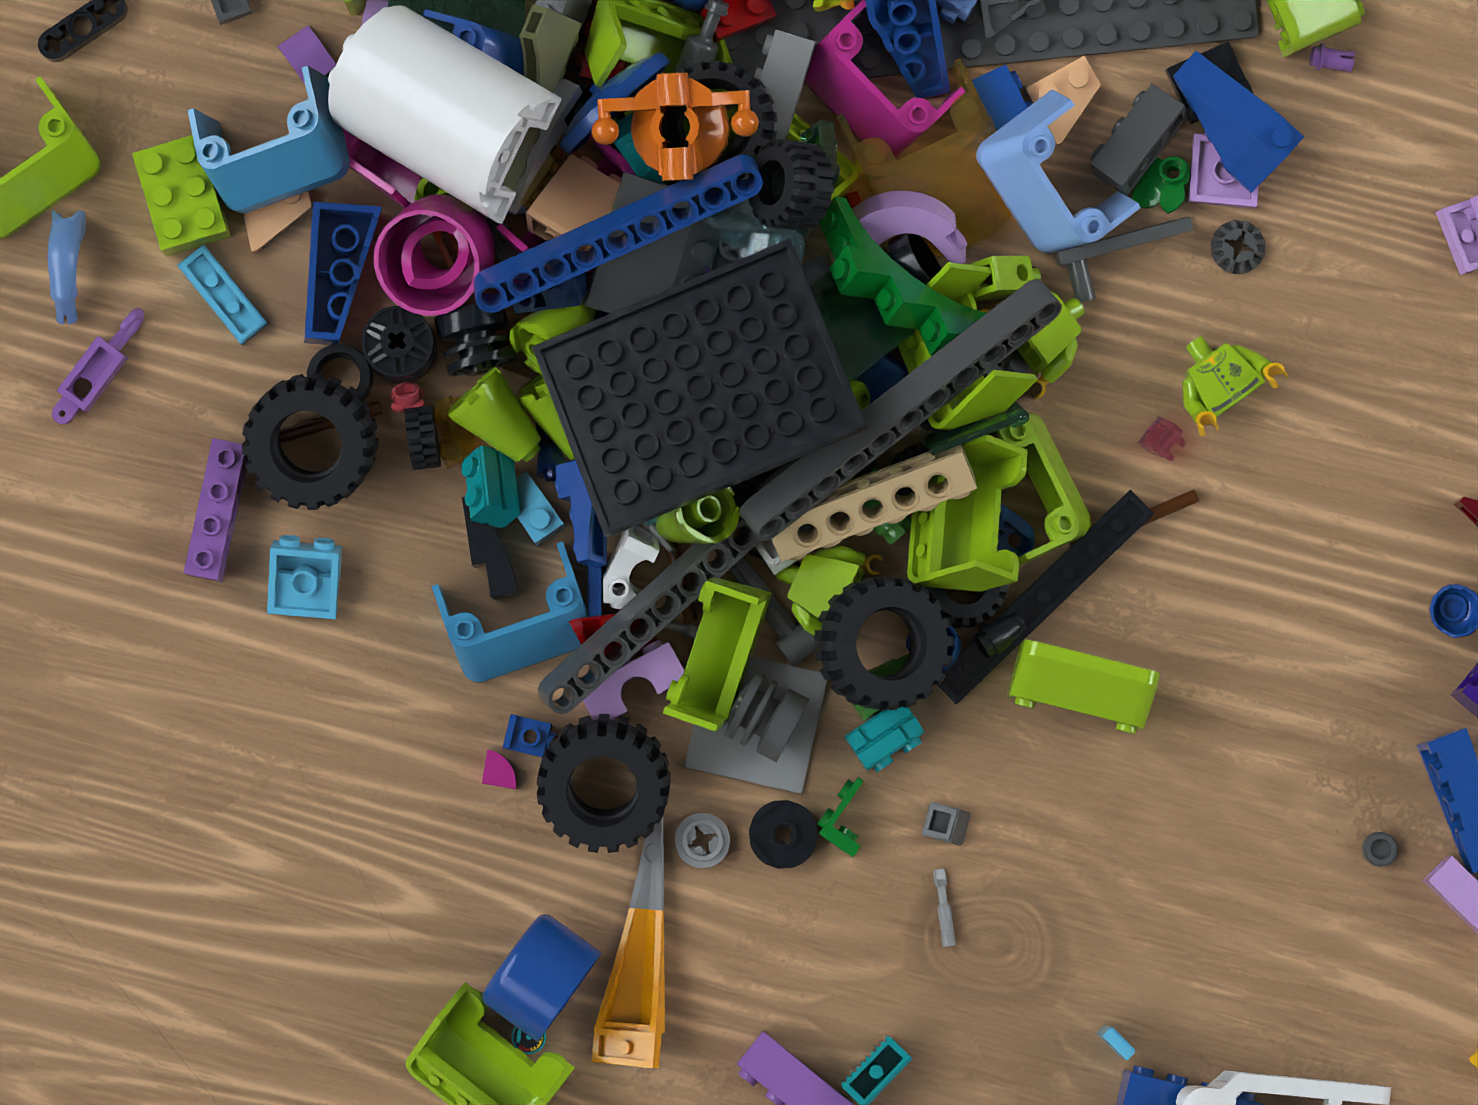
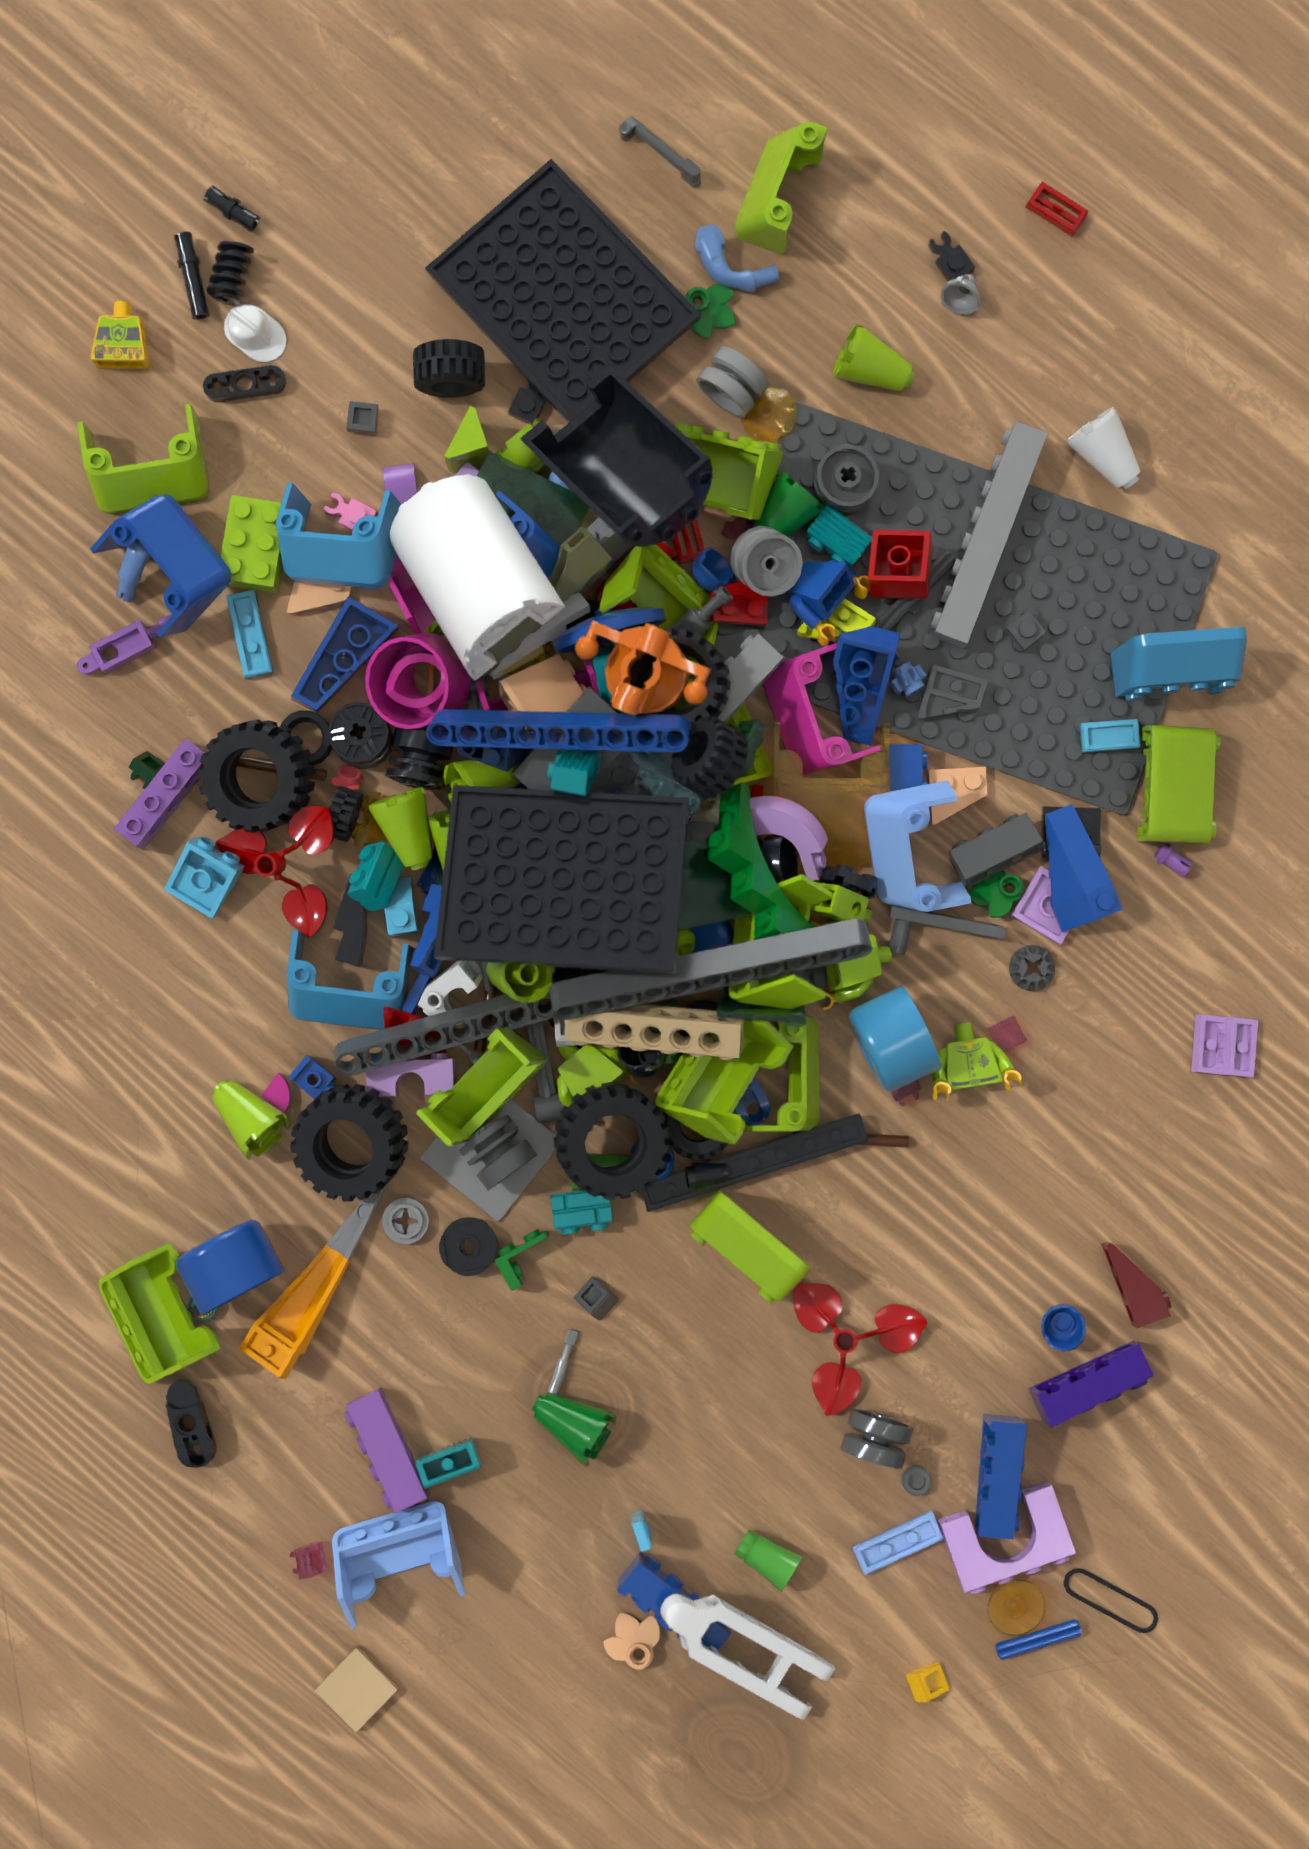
camera: 25 degrees right, 0 degrees up
(106, 238) = (179, 550): none -> blue windscreen
(185, 491) = (145, 766): none -> dark green tile
(271, 112) = (350, 512): none -> bright pink plate
(400, 471) = (313, 831): none -> red plant
(481, 811) = (249, 1118): none -> lime cone
(653, 268) = (574, 770): none -> teal brick
(873, 547) = (641, 1063): none -> black hair
(989, 966) = (574, 1425): none -> green cone
(991, 244) = (844, 877): none -> black plate
(1130, 391) = (894, 1039): none -> dark azure piece
(1185, 717) = (834, 1384): none -> red plant
(1246, 329) = (1007, 1034): none -> clear pink tile
(1263, 1007) = (768, 1559): none -> bright green plant
(1316, 822) = (877, 1434): none -> dark grey wheel
(1392, 924) = (898, 1542): none -> light blue tile

